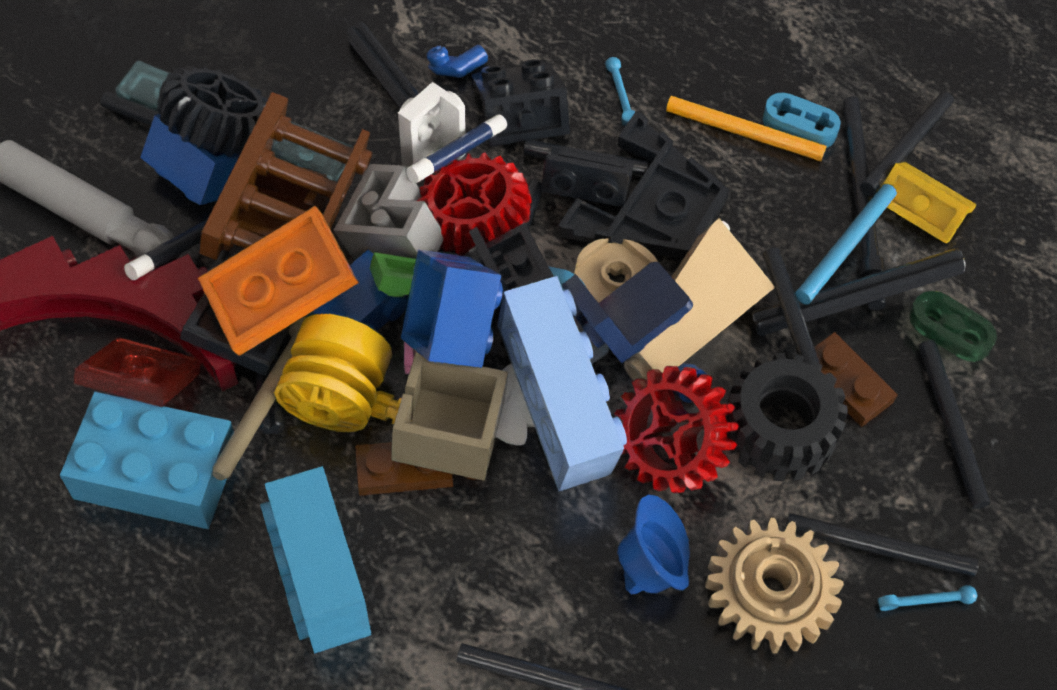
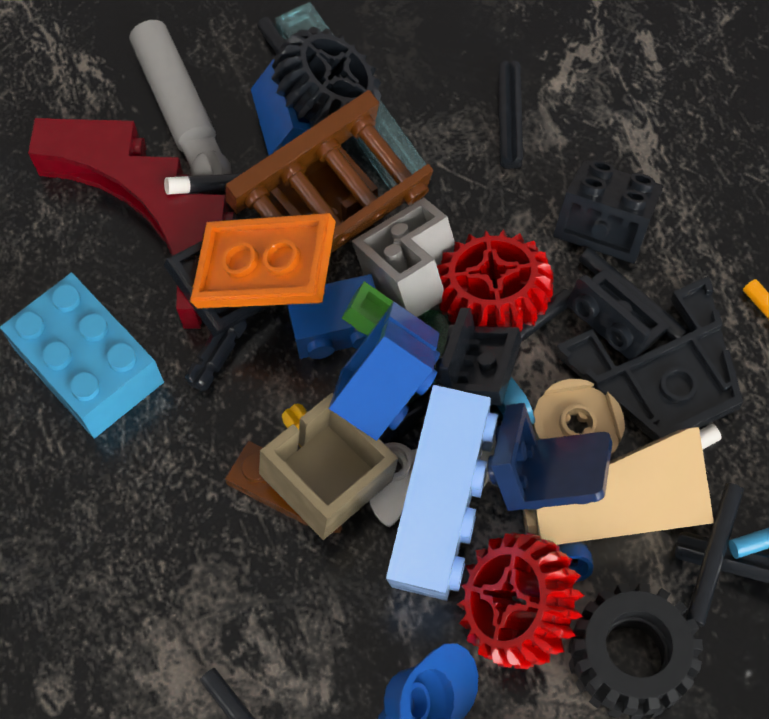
camera: 40 degrees right, 5 degrees up
(138, 371) = (120, 274): clear red tile -> none
(255, 413) = (274, 317): dark tan bar -> none
(315, 561) = (138, 521): dark azure brick -> none
(333, 373) = (258, 373): yellow wheel -> none
(429, 123) = (502, 189): white bracket -> none
(456, 66) = (573, 144): blue arm -> none
(456, 148) = (509, 224): dark blue bar -> none
(613, 65) = (722, 220): dark azure hinge -> none
(864, 389) = (731, 654): reddish brown plate -> none

